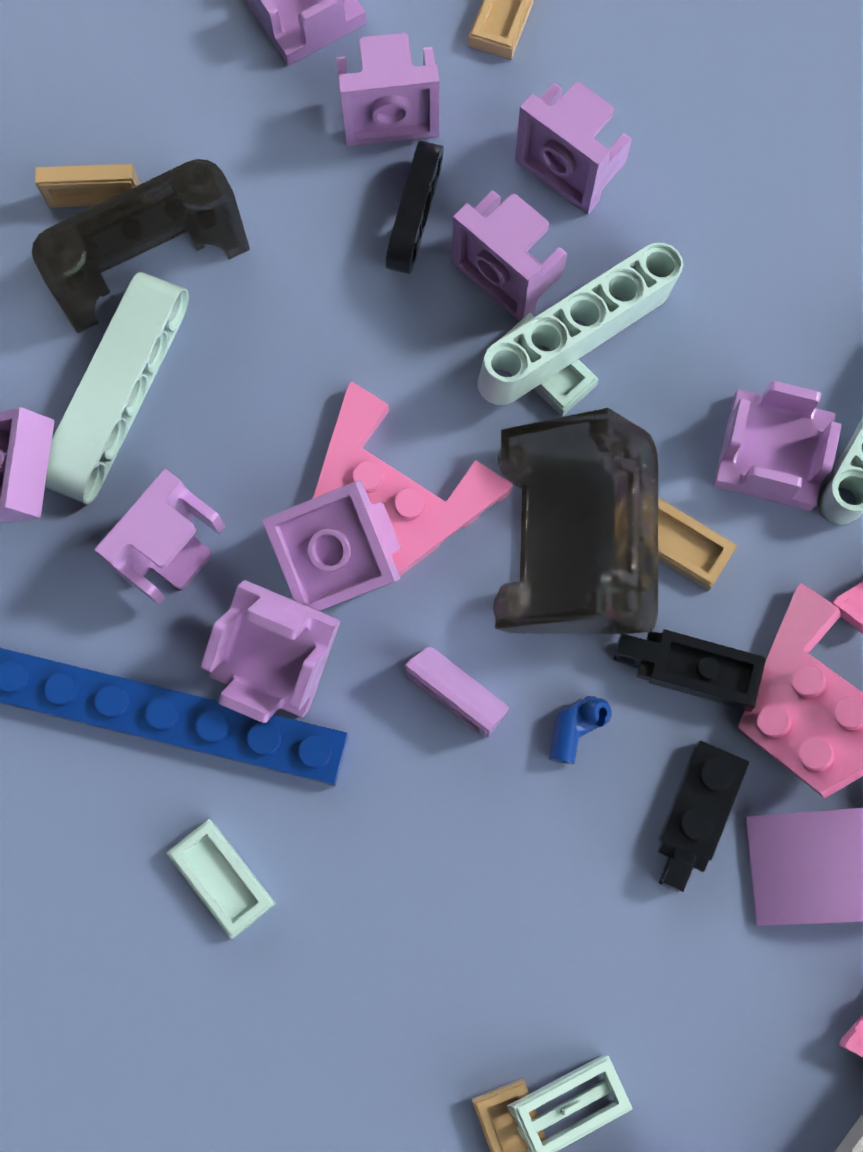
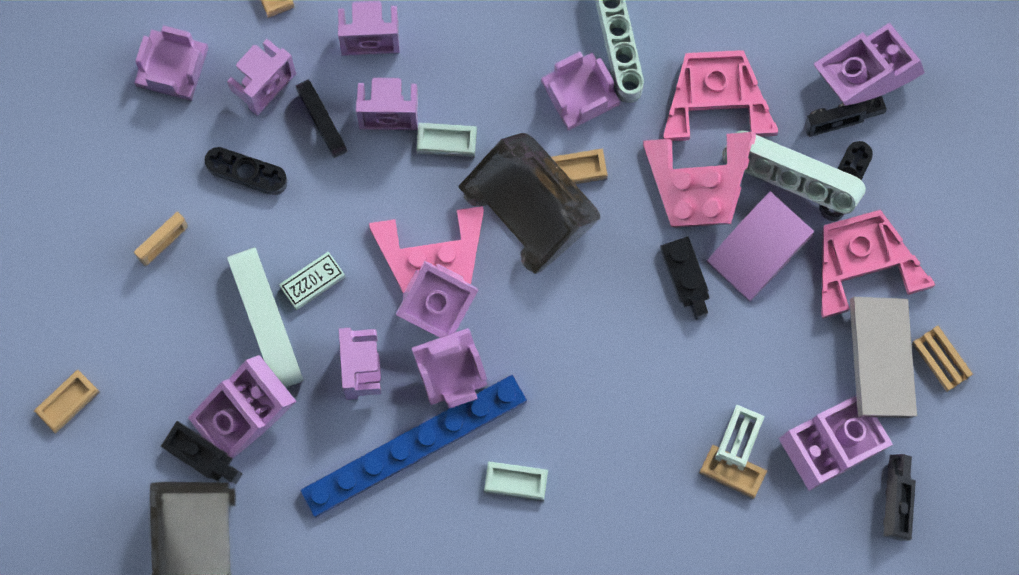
camera: 45 degrees left, 0 degrees up
(182, 200) = (190, 274): clear smoke windscreen -> none
(217, 391) = (312, 280): none -> light aqua tile
(268, 175) = (223, 170): none -> black beam
(456, 691) = (541, 316): lavender slope -> none
(569, 341) = (448, 121): light aqua beam -> none
(575, 722) = (602, 284): blue arm -> none
(694, 667) = (630, 216): black hinge -> none

